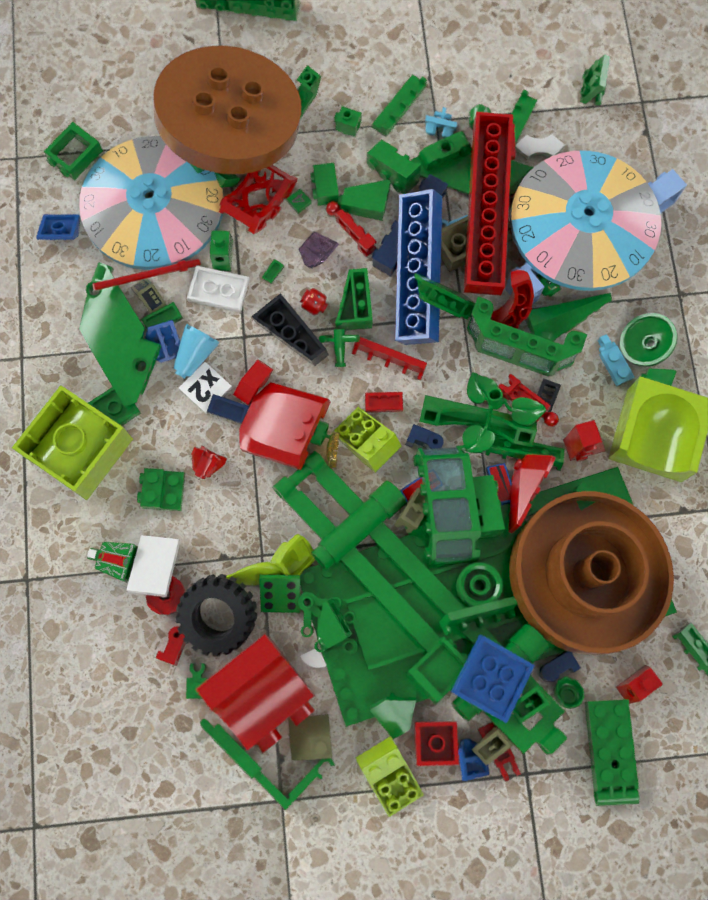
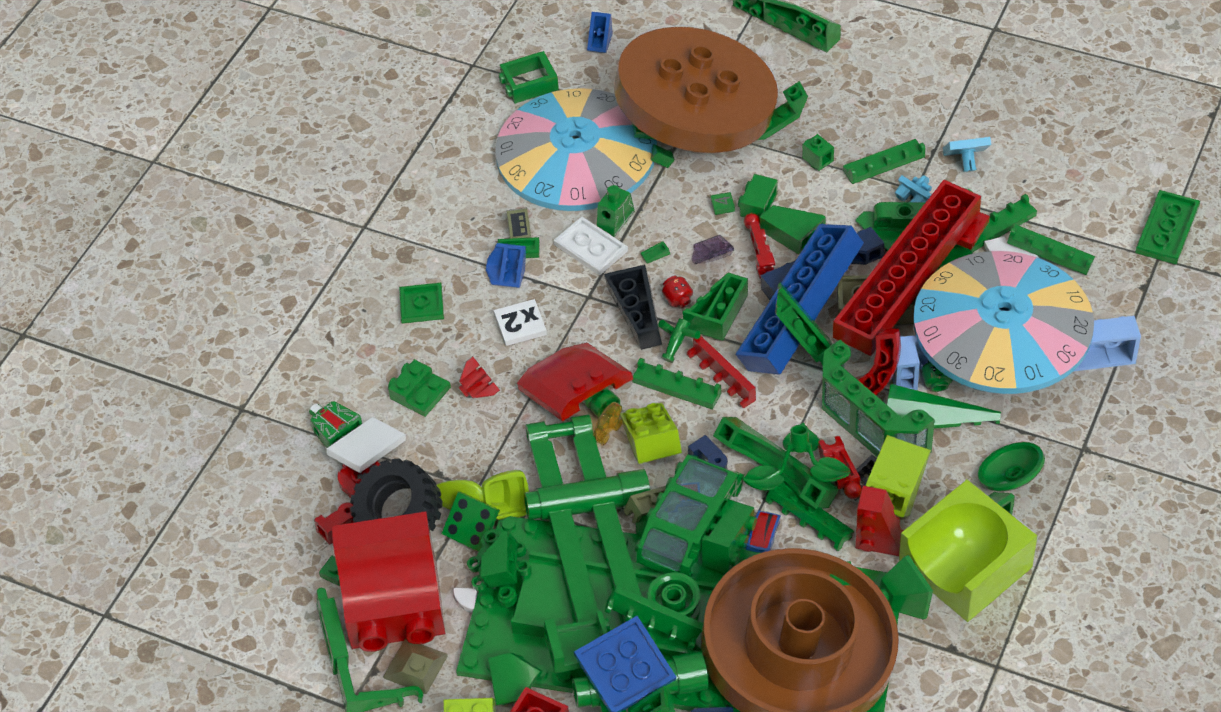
camera: 35 degrees right, 25 degrees down
(59, 227) = (473, 133): blue slope -> none
(73, 442) = (363, 307): lime piece -> none
(106, 81) = (600, 32): none -> blue slope
(117, 338) = (462, 243): green panel -> none
(181, 266) = (566, 209): red bar -> none
(193, 351) = (528, 282): medium azure cone -> none
(227, 409) = (527, 346): dark blue tile -> none
(249, 215) = (658, 177): red fence -> none
(253, 380) = (574, 330): red slope -> none
(360, 385) = (676, 384): none -> green hinge
(384, 402) = (690, 408): red plate -> none
(394, 167) = (837, 204): green wedge -> none
(459, 68) = (967, 149): none -> medium azure tile
(524, 487) = (794, 531): red wedge -> none
(567, 131) = (1050, 249): none -> green hinge
(577, 393) = (900, 472): none -> lime slope
(595, 81) = (1108, 219): green plate -> none
(614, 361) = (964, 468): medium azure hinge -> none
(635, 71) = (1167, 227): none -> green tile
(635, 483) = (907, 589): none -> green slope

